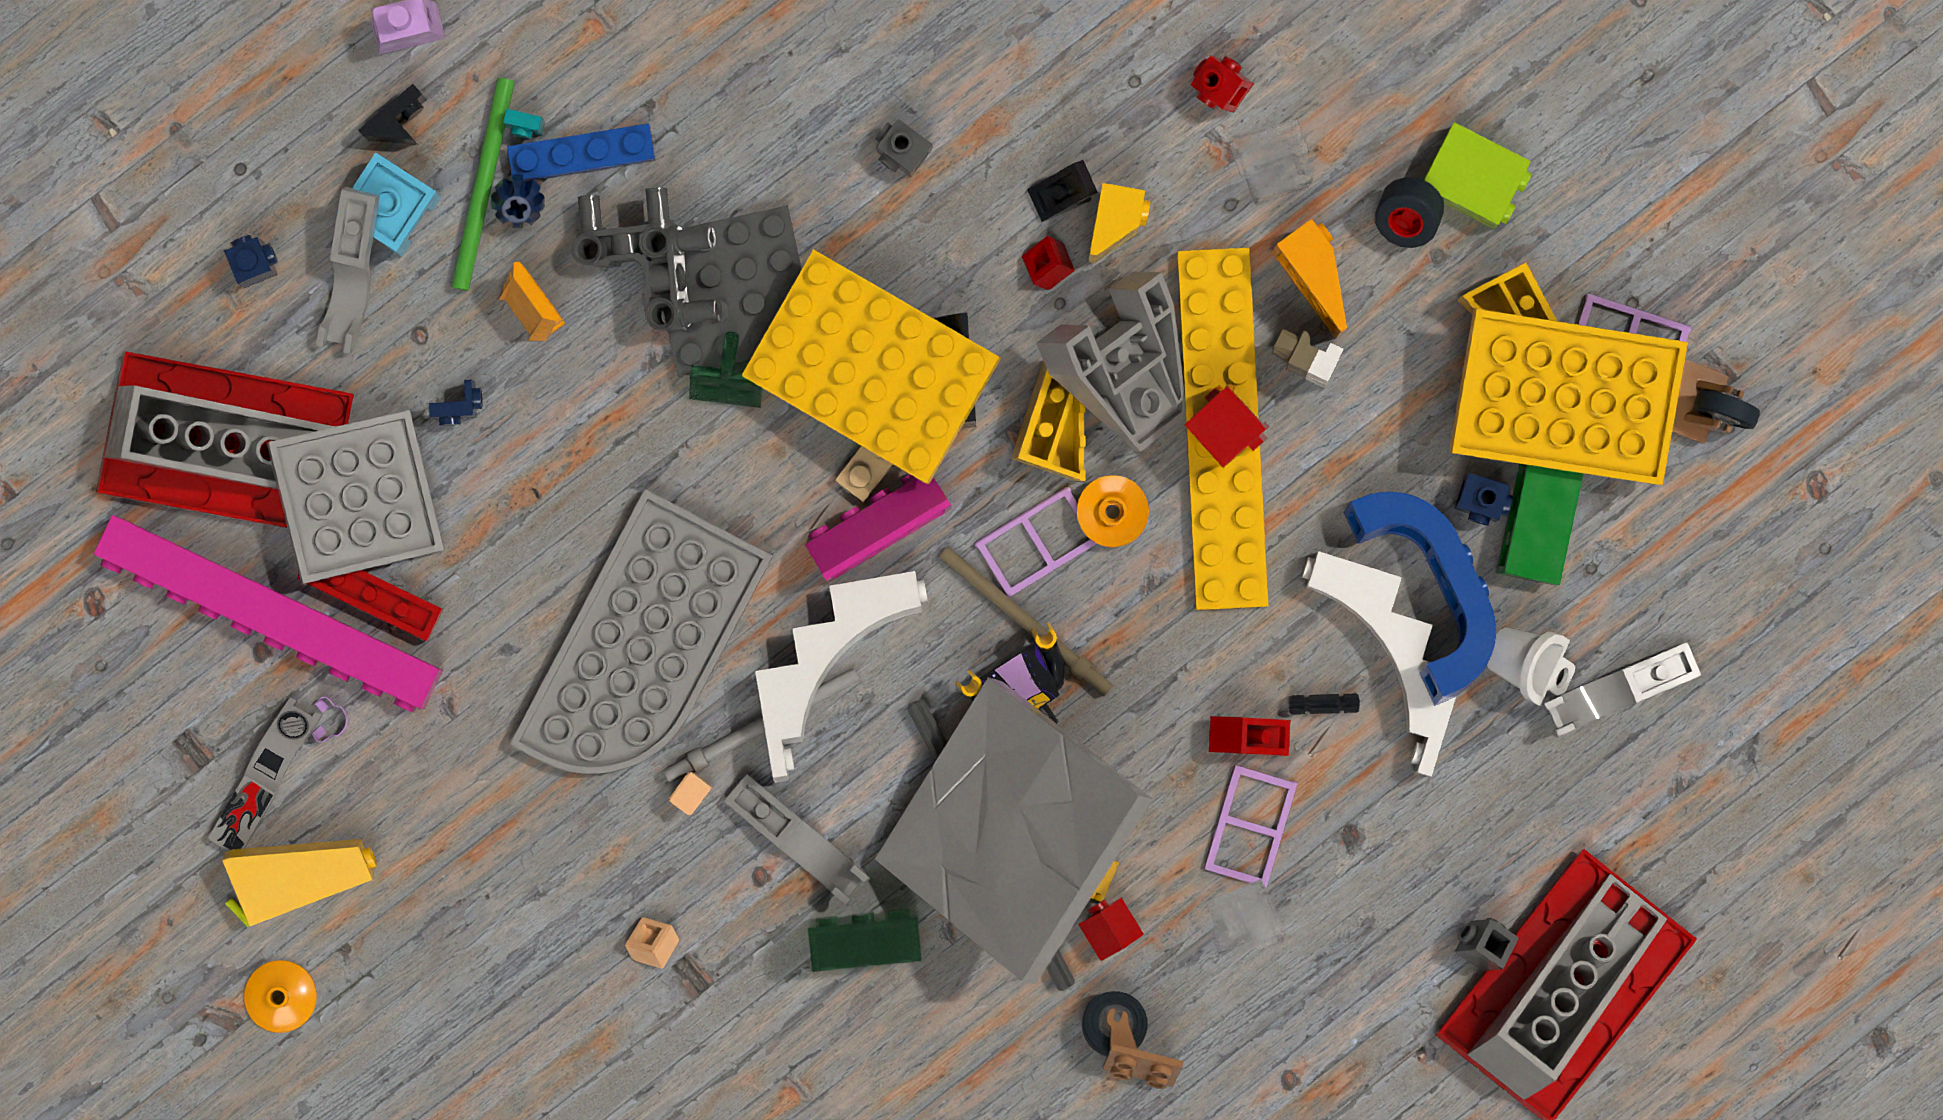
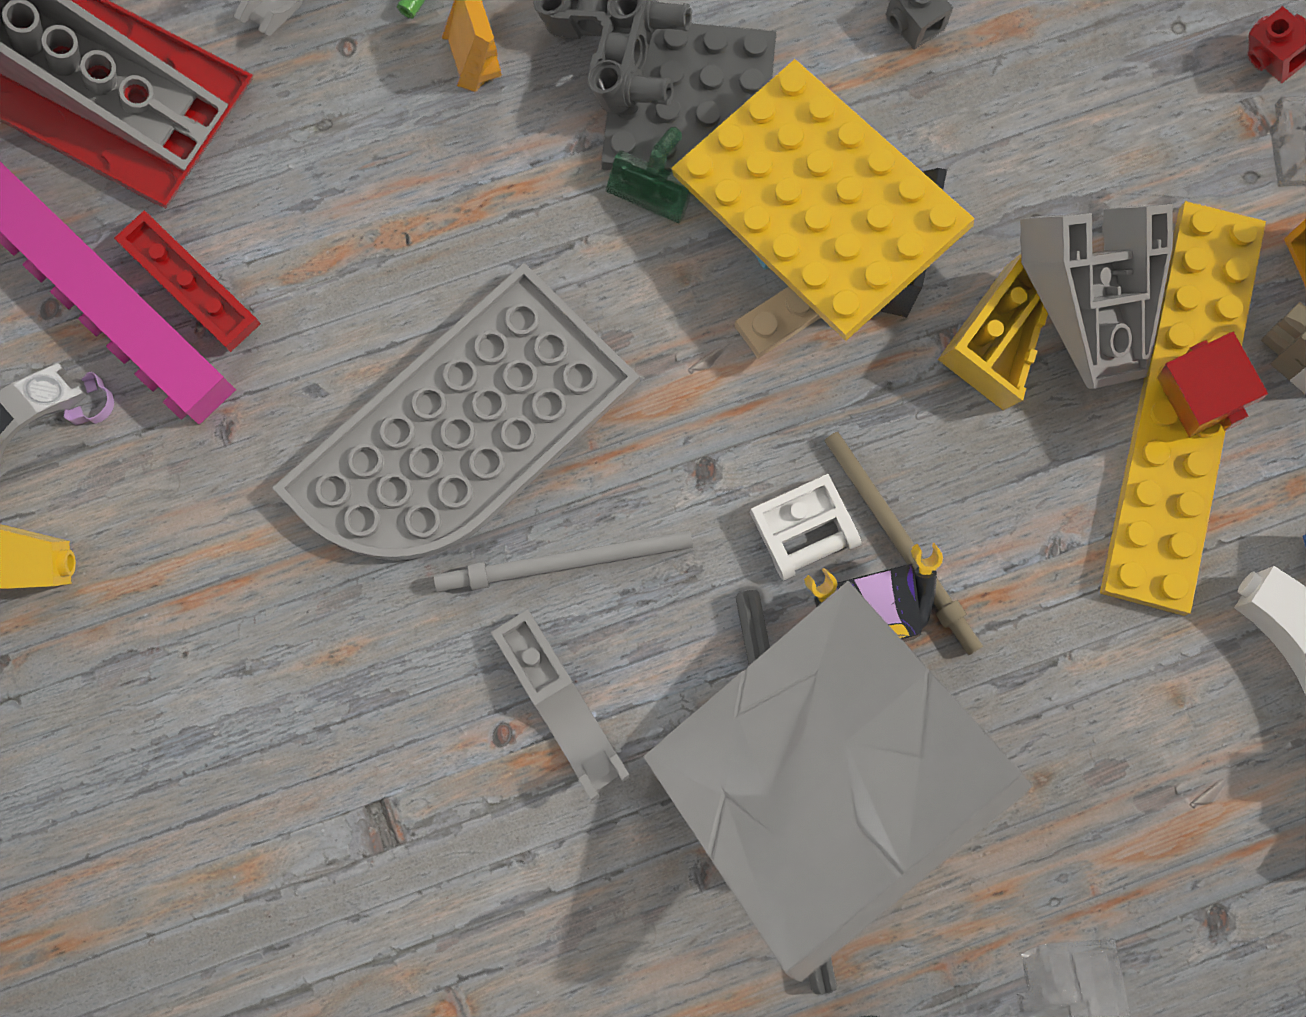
camera: 20 degrees right, 10 degrees down
(355, 496) = (206, 169): light grey plate -> none
(452, 412) = (355, 123): dark blue bracket -> none
(652, 942) = (349, 770): light nougat slope -> none
(690, 793) = (454, 607): light nougat slope -> none
(790, 689) = (611, 526): white arch -> none
(864, 940) = (598, 852): clear green brick -> none
(877, 526) = (770, 381): dark pink slope -> none
(936, 626) = (798, 514): none -> white plate
(1023, 518) = (948, 488): lavender window -> none
(1048, 263) = (1038, 172): red slope -> none
(1063, 191) = (1079, 100): black slope -> none
(1110, 928) = (902, 938): red brick -> none
(1117, 219) = (1135, 138): yellow slope -> none
(1126, 497) = (1052, 436): light orange dish -> none
(1224, 818) = (1071, 847): lavender window -> none
(1249, 735) = (1129, 755): red slope -> none
(1324, 703) = (1227, 748): black axle -> none

